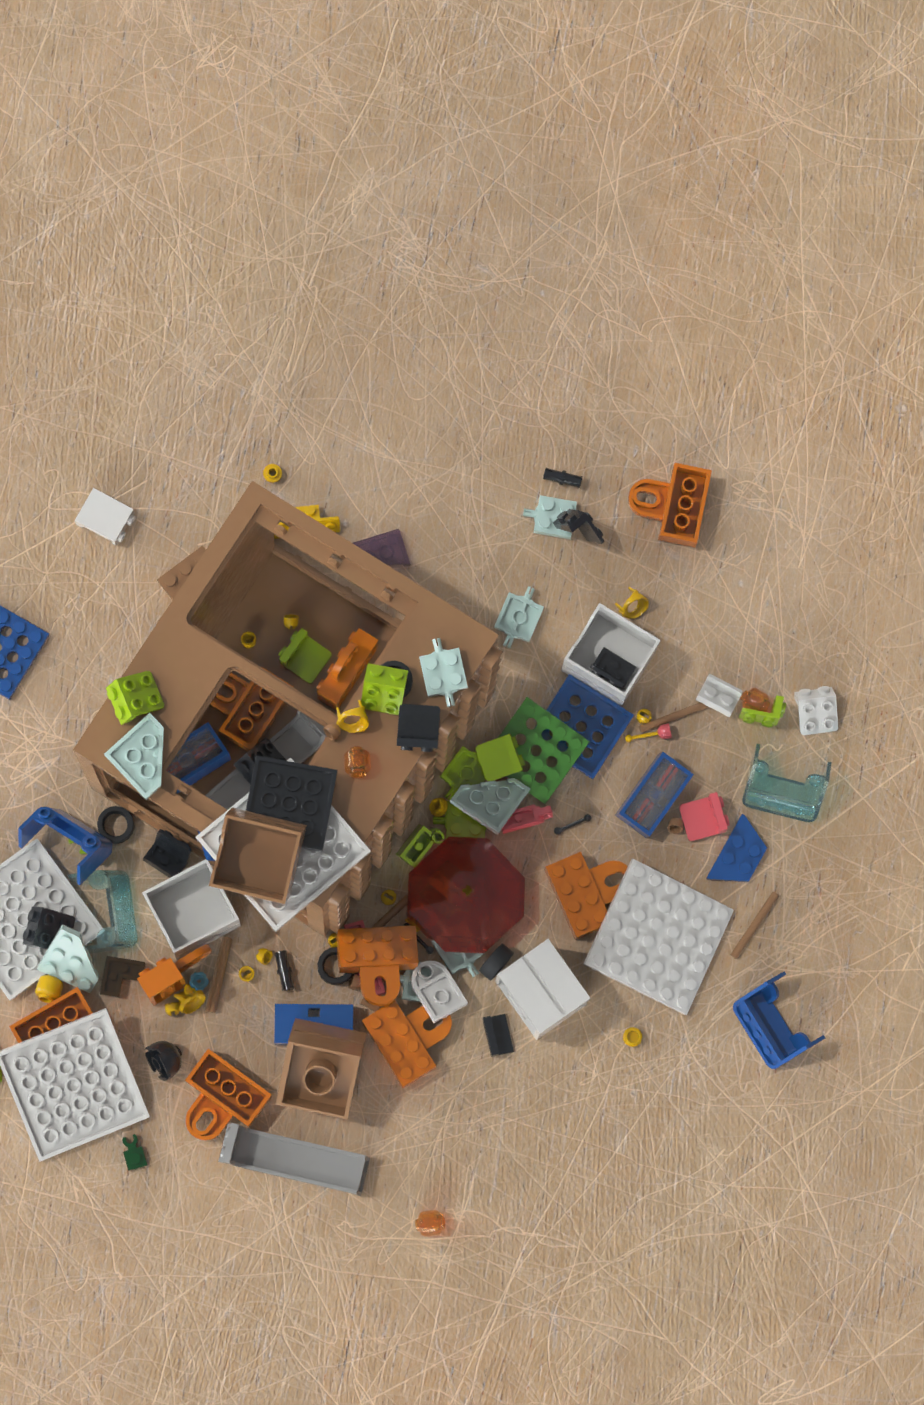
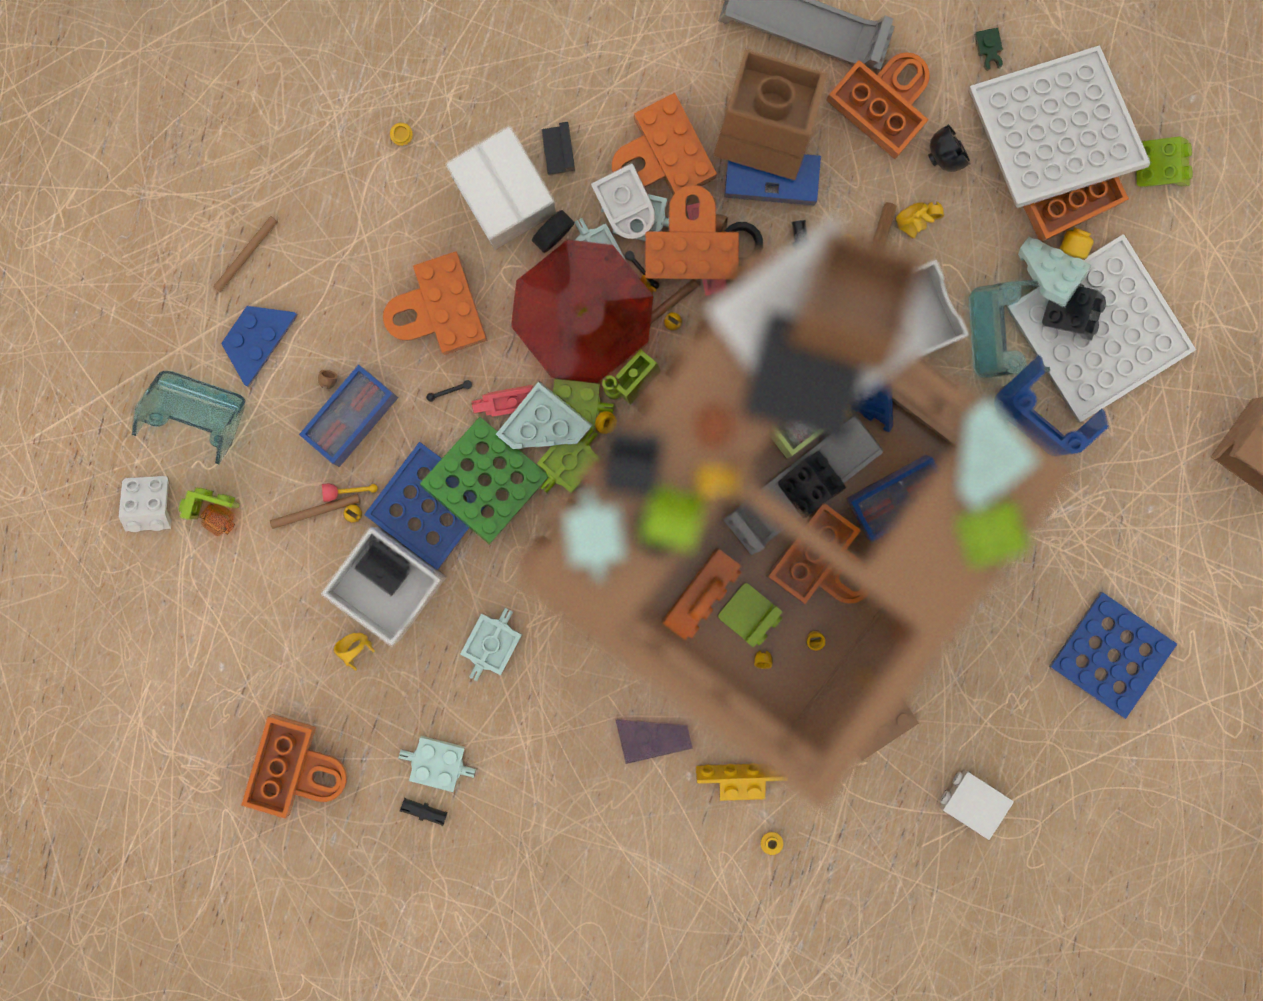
camera: 170 degrees left, 10 degrees up
(115, 971) = (997, 258): dark brown plate -> none
(166, 976) = (949, 234): orange brick -> none
(198, 976) = (895, 239): medium azure plate -> none
(500, 757) = (528, 472): lime bracket -> none
(575, 519) = (413, 755): black bracket -> none
(658, 936) = (359, 245): white plate -> none
(704, 817) = (292, 385): coral bracket -> none
(719, 695) = (260, 530): white bracket -> none
(768, 1028) = (239, 127): blue windscreen -> none

